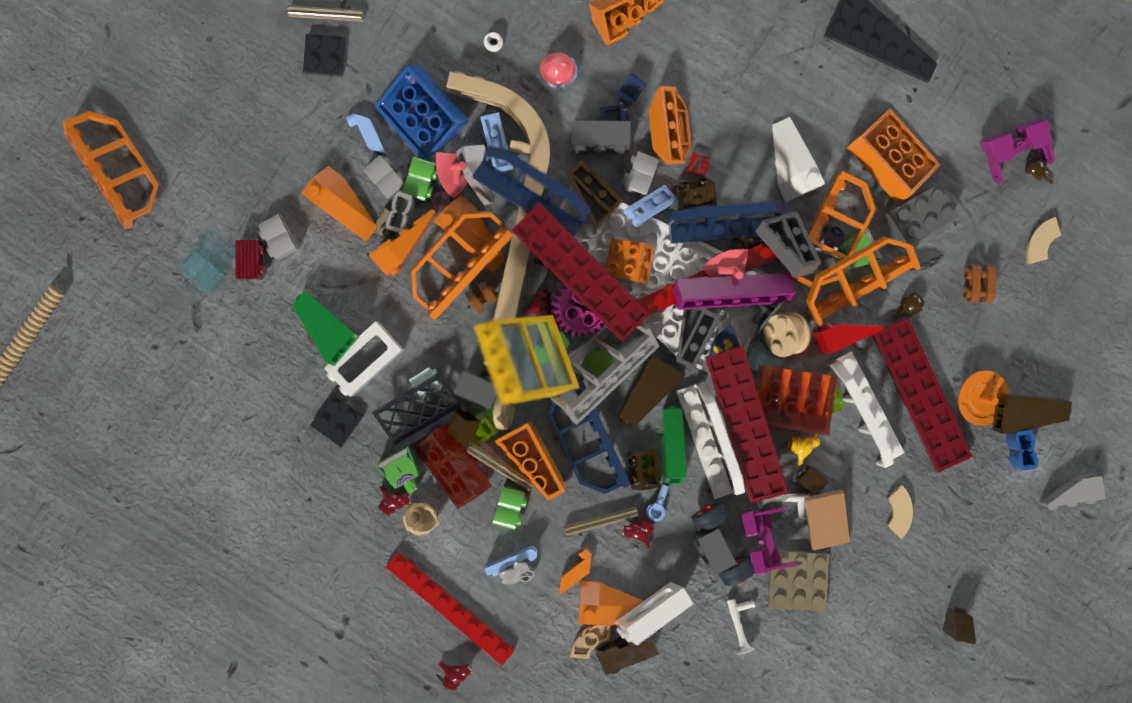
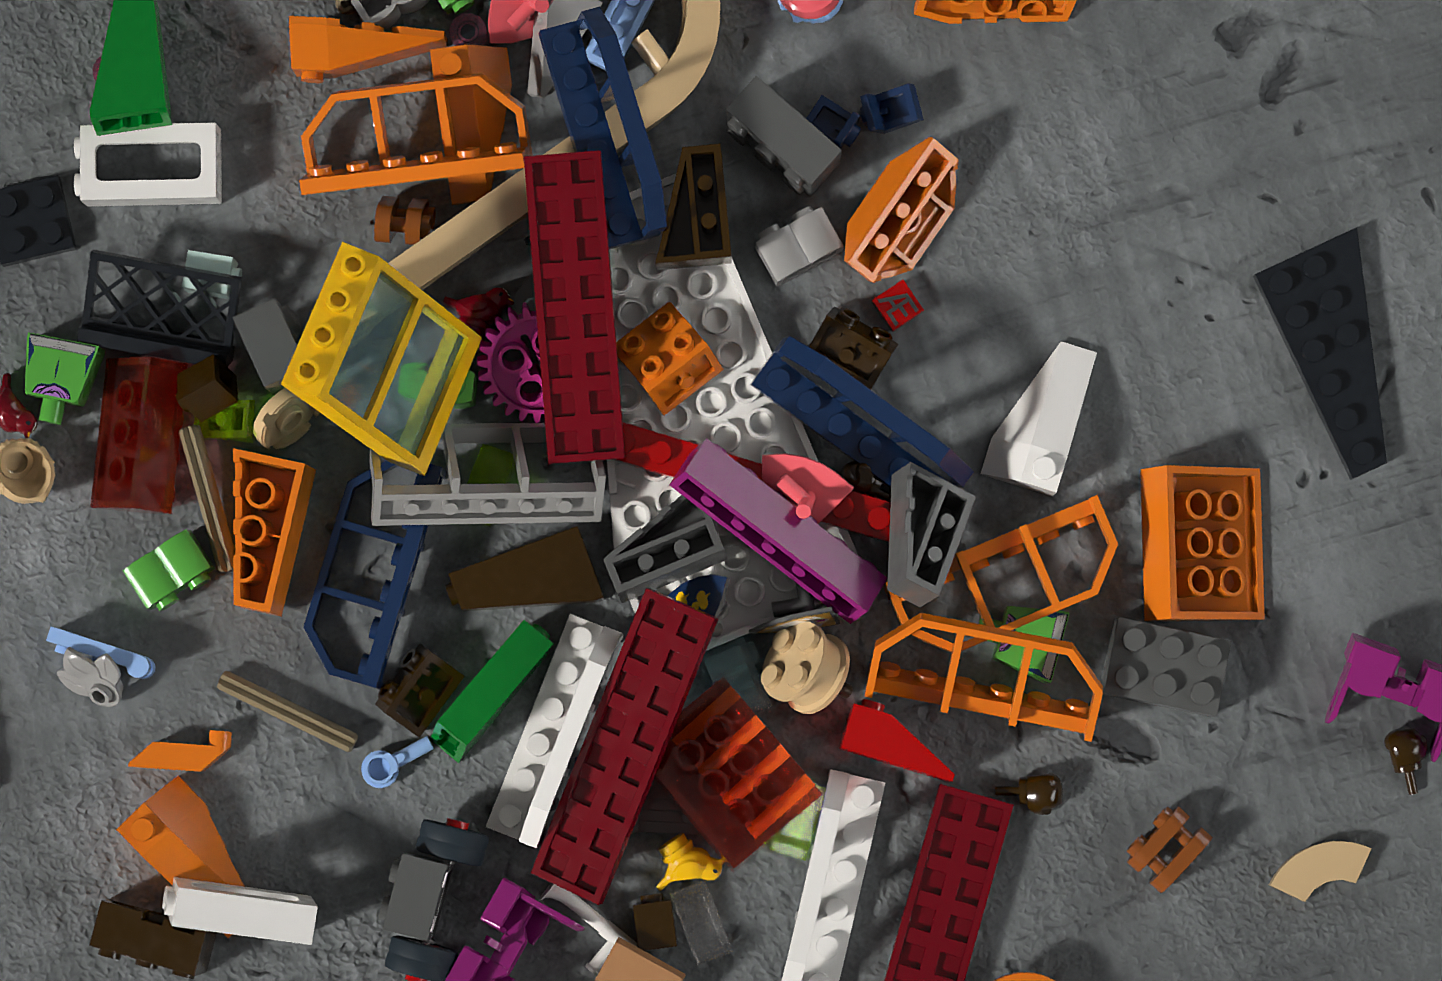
camera: 45 degrees right, 5 degrees down
(589, 639) = (113, 874): tan tile -> none
(639, 531) = (329, 775): dark red animal -> none
(650, 205) = (770, 302): light blue plate -> none
(832, 238) = (1000, 588): dark blue bracket -> none

